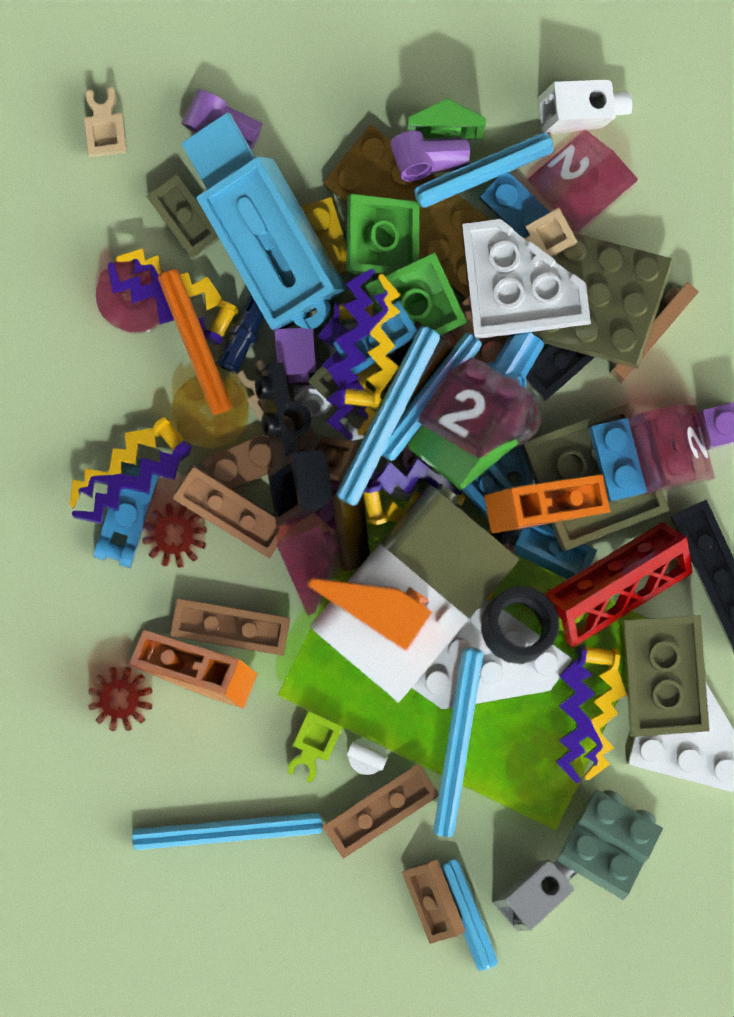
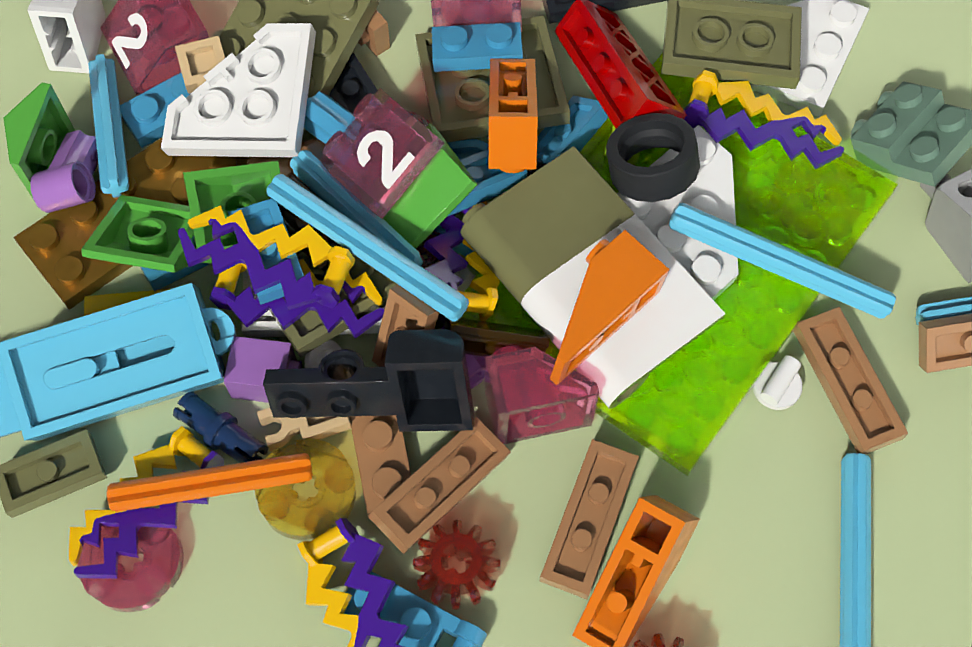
camera: 80 degrees left, 20 degrees down
(315, 740) = (751, 440): lime plate -> none

